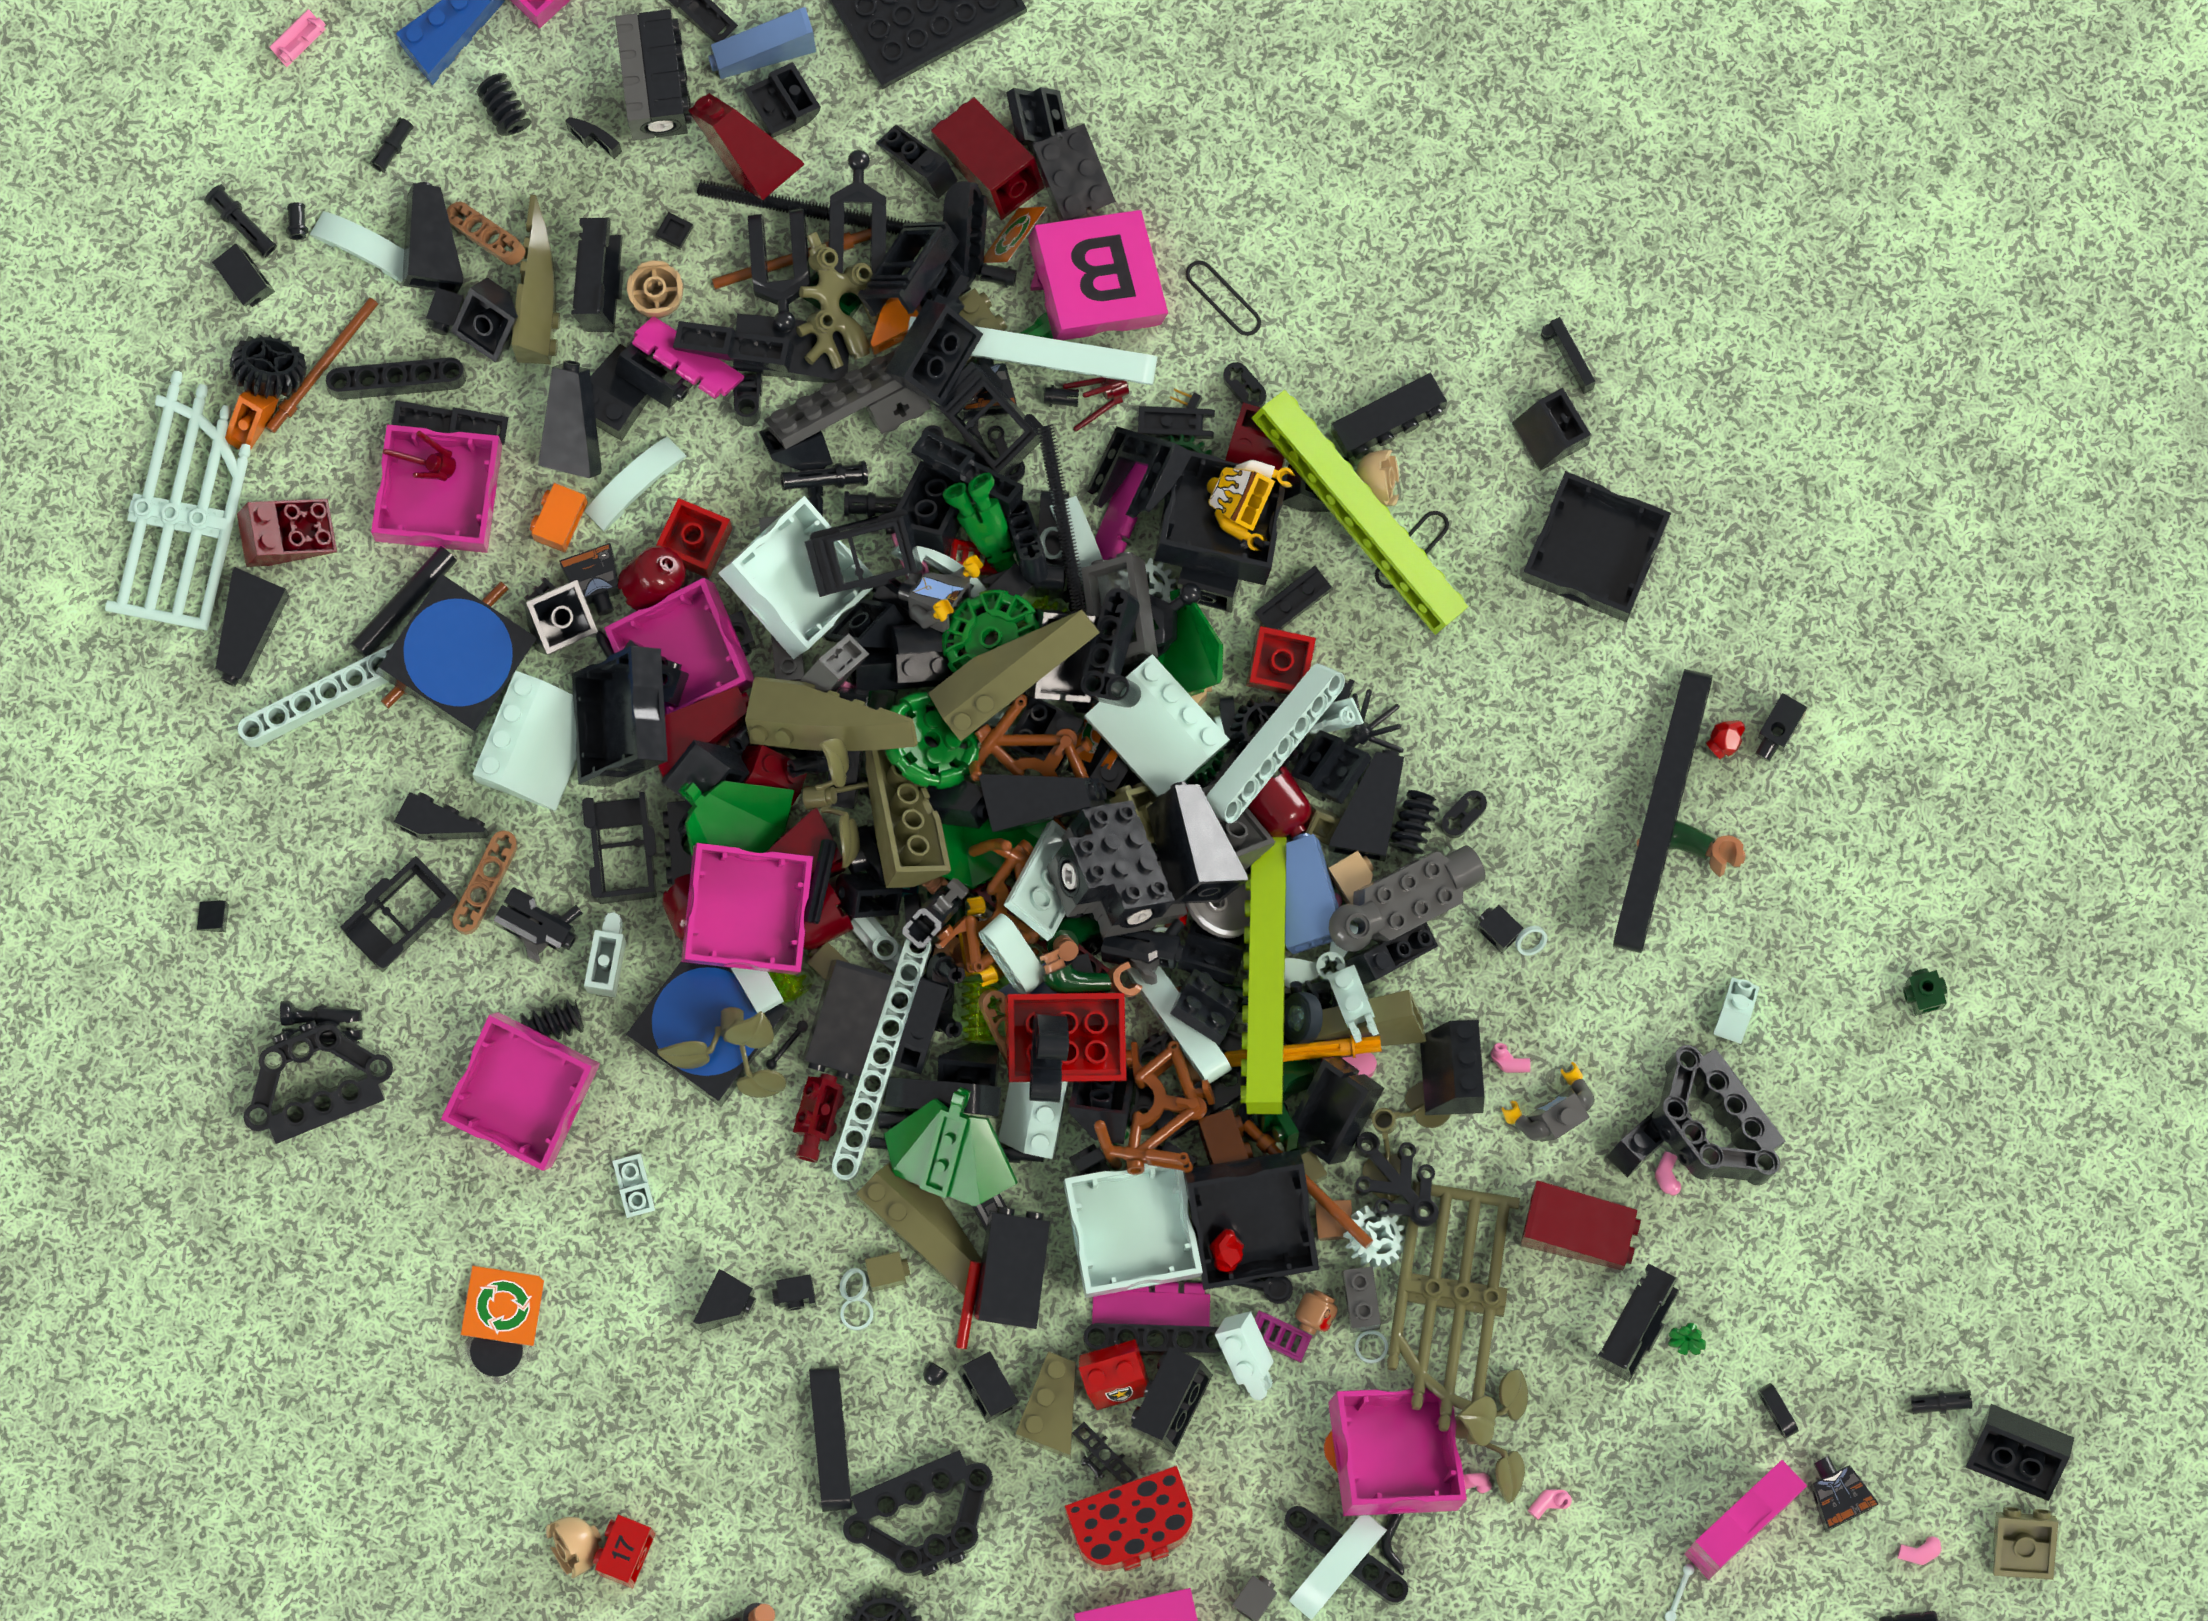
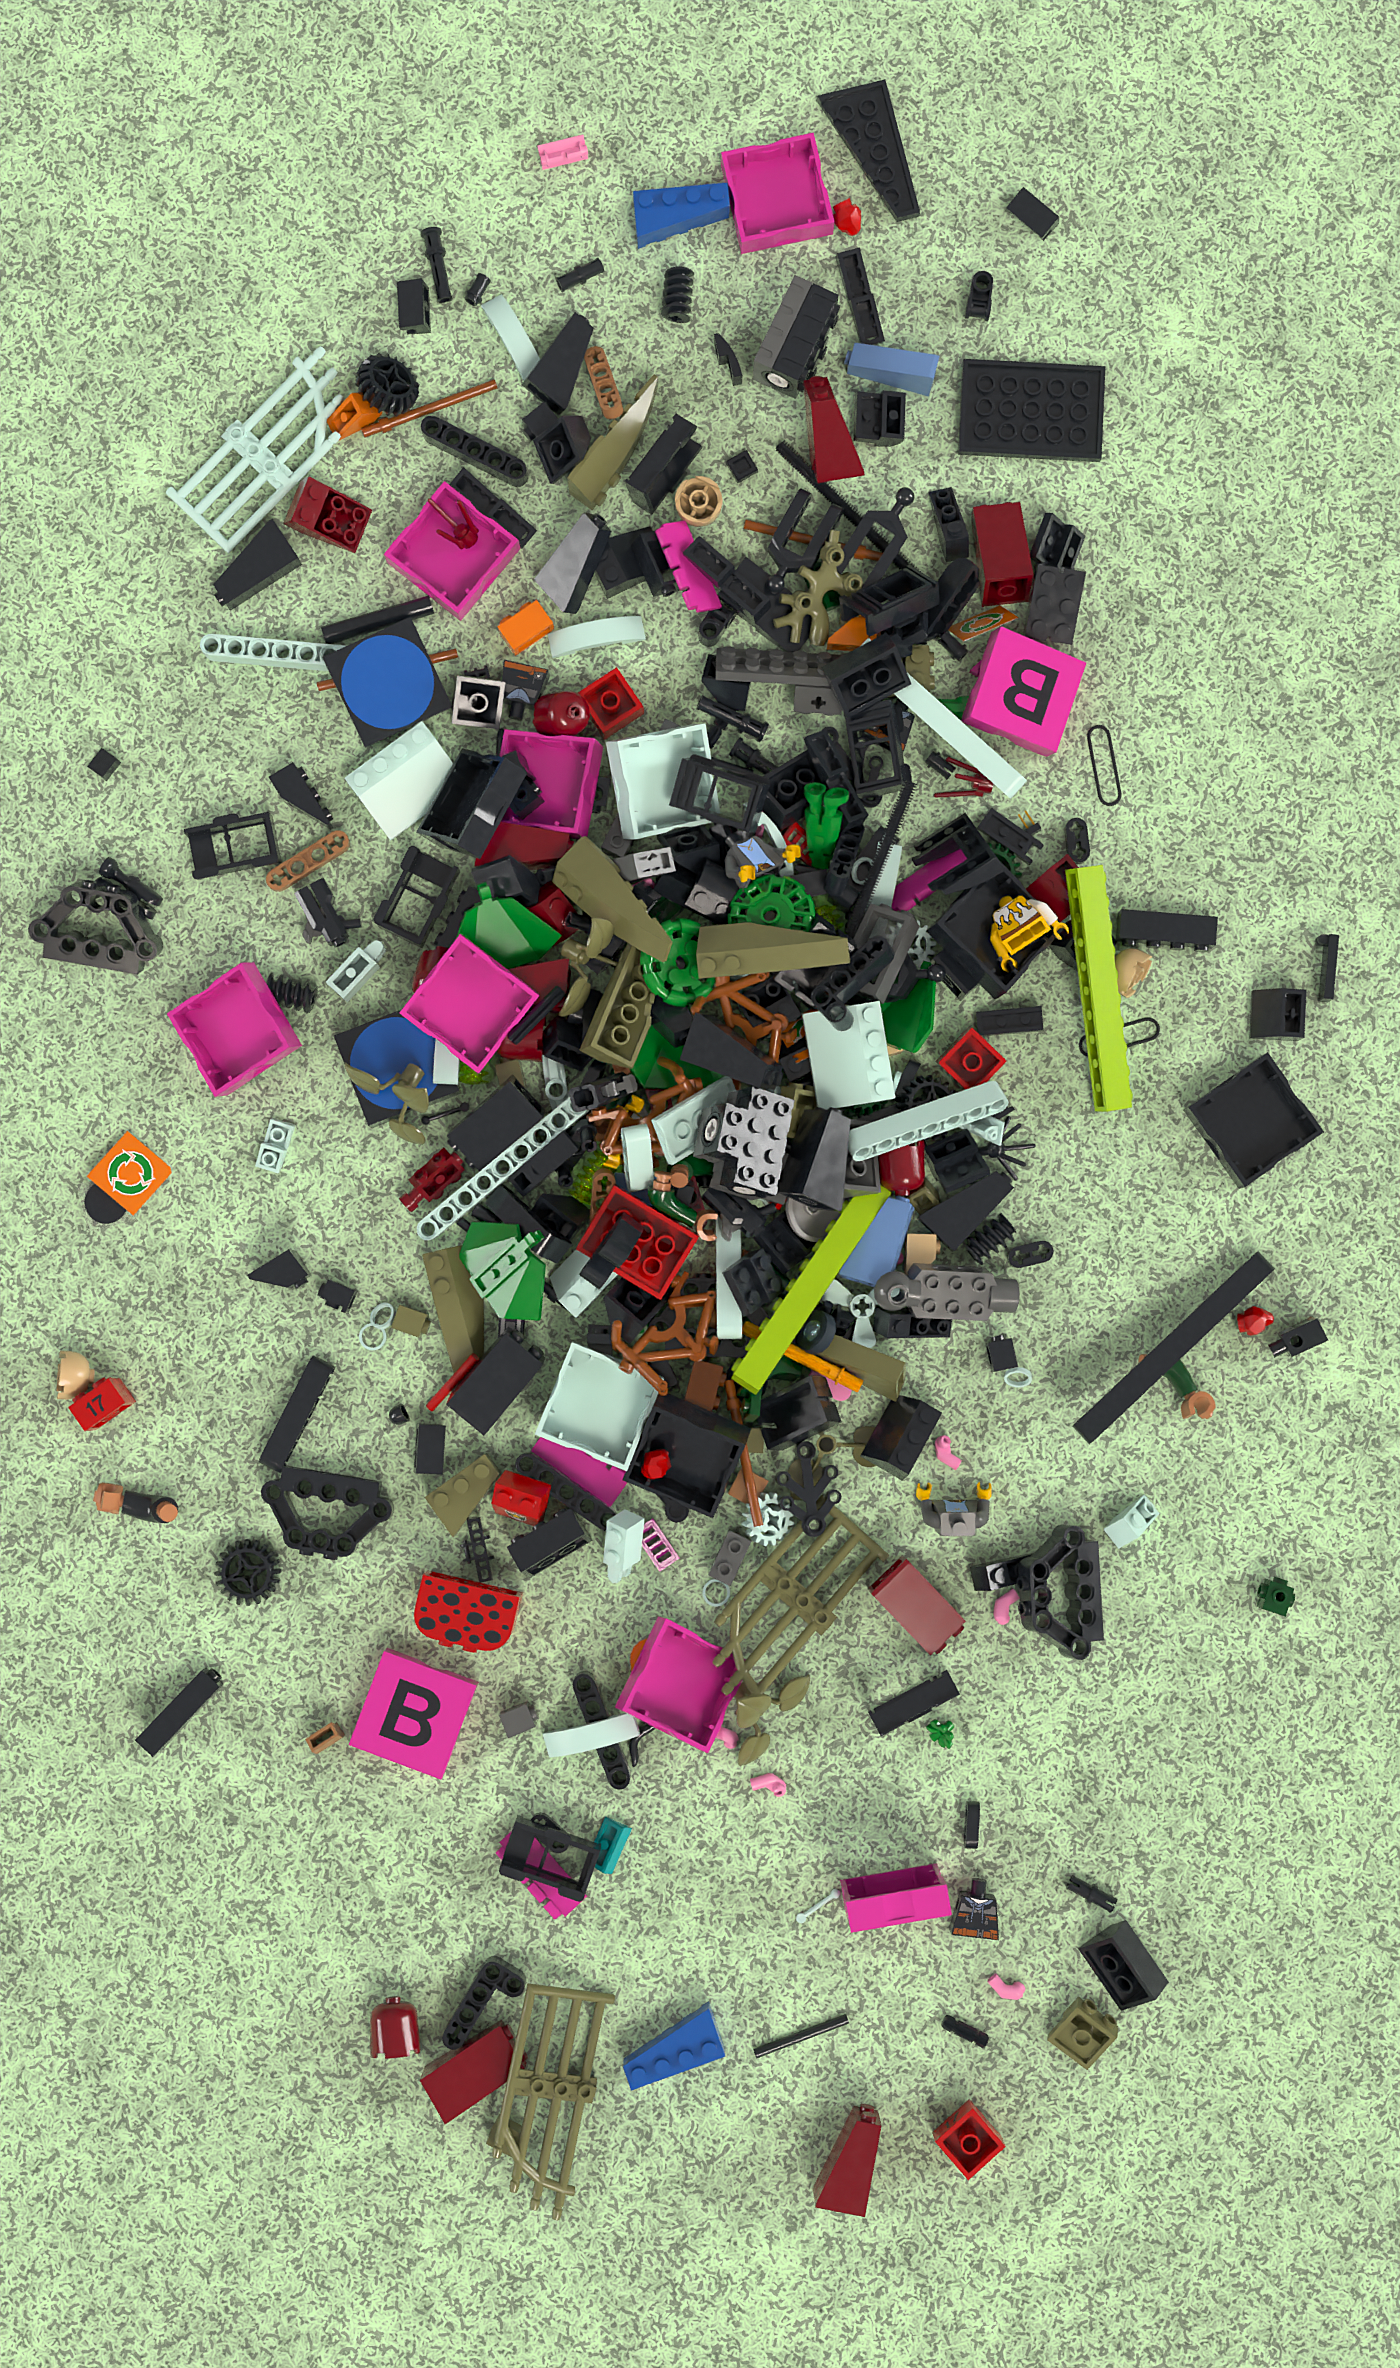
camera: 30 degrees right, 10 degrees up
(1316, 1312) = (692, 1544): medium nougat head -> none
(1352, 1001) = (860, 1344): light aqua hinge -> none

